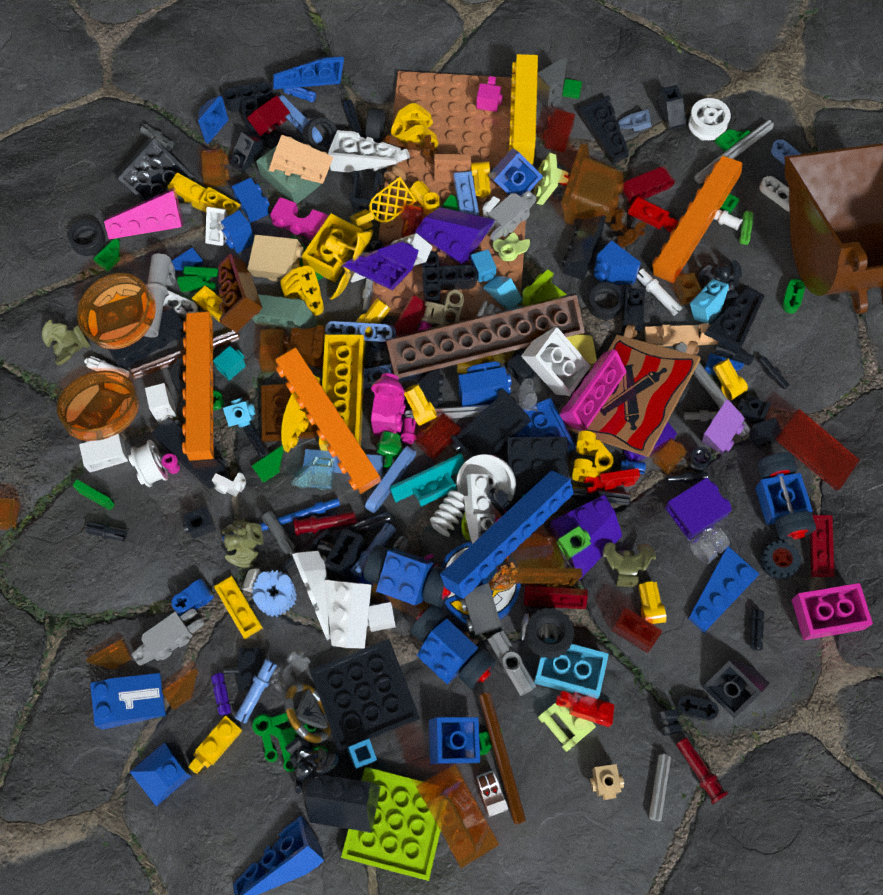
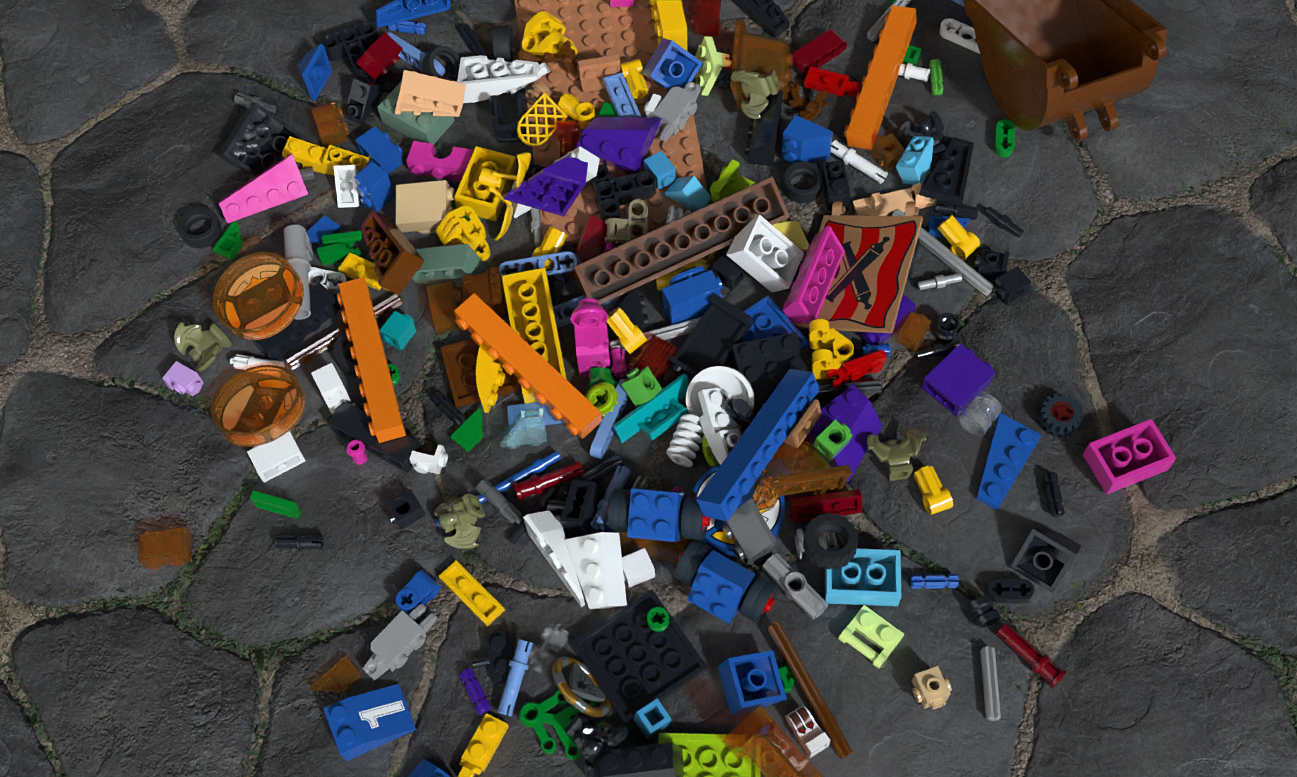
camera: 10 degrees left, 5 degrees down
(42, 369) = (183, 379): none -> lavender brick
(148, 463) = (333, 456): white wheel -> none
(181, 690) = (428, 697): clear orange tile -> none
(233, 416) = (414, 381): medium azure brick -> none
(250, 578) = (481, 560): white slope -> none
(268, 583) = (505, 556): light blue brick -> none
(362, 219) = (512, 146): yellow bracket -> none
(390, 456) = (607, 392): none -> lime gear
(391, 661) = (659, 612): none -> green bush
(421, 457) = (641, 385): none -> bright green brick
(510, 247) = (684, 145): yellowish green plate -> none
(526, 395) = (742, 297): clear hinge -> none
(552, 523) = (804, 425): none -> medium nougat slope
(585, 209) = (758, 88): none -> olive animal
(587, 708) = (890, 615): red plate -> none
(633, 685) = (934, 581): none -> blue axle
(636, 630) = (924, 521): clear red brick -> none
(723, 428) = (965, 288): medium lavender slope -> none
(784, 496) = (1048, 346): brick -> none
(817, 449) = (1071, 291): clear red tile -> none
(822, 547) = (1101, 391): dark red hinge -> none

